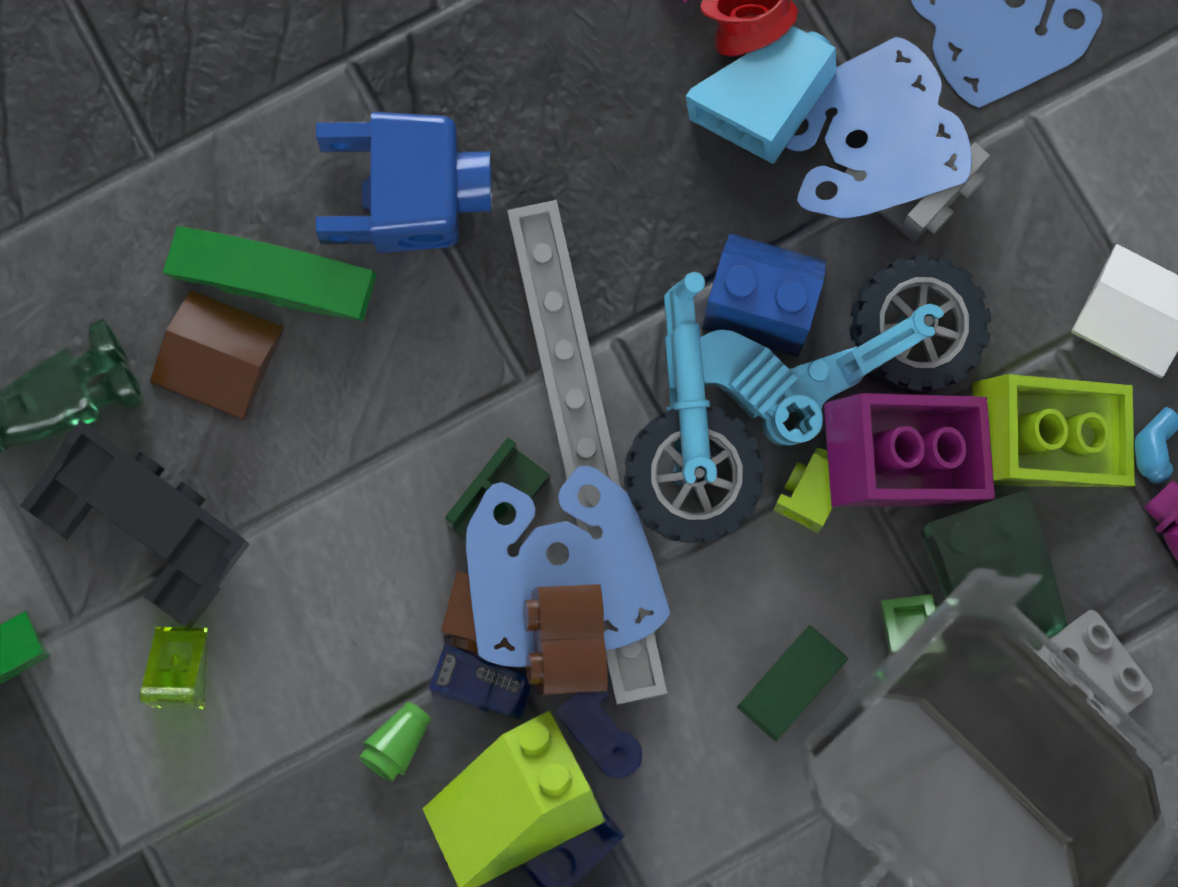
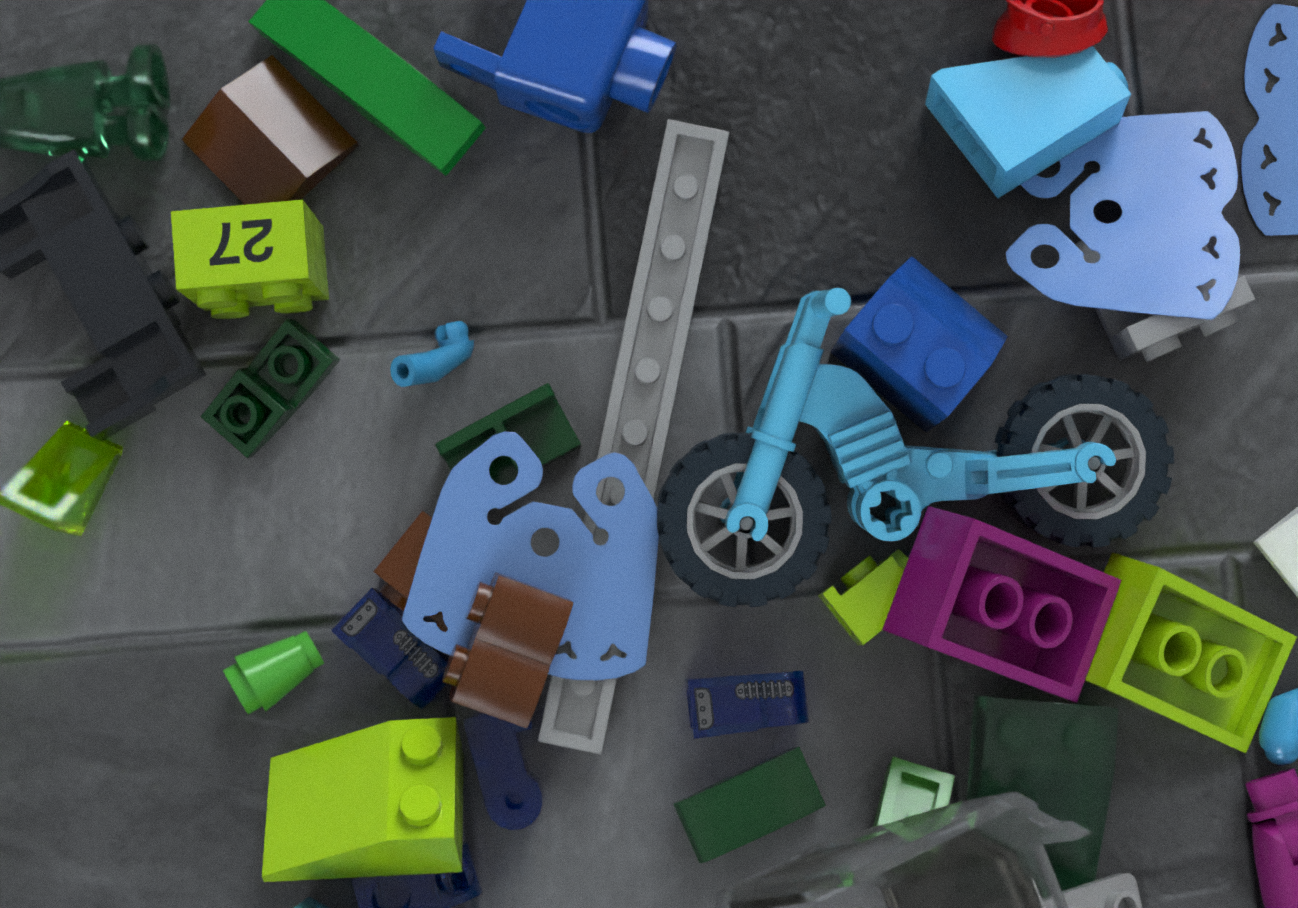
camera: 25 degrees right, 5 degrees up
(247, 442) = (250, 257): none -> lime brick
(299, 535) = (270, 388): none -> dark green slope
(413, 465) = (434, 364): none -> dark azure arm
(755, 609) = (745, 702): none -> clear blue leg

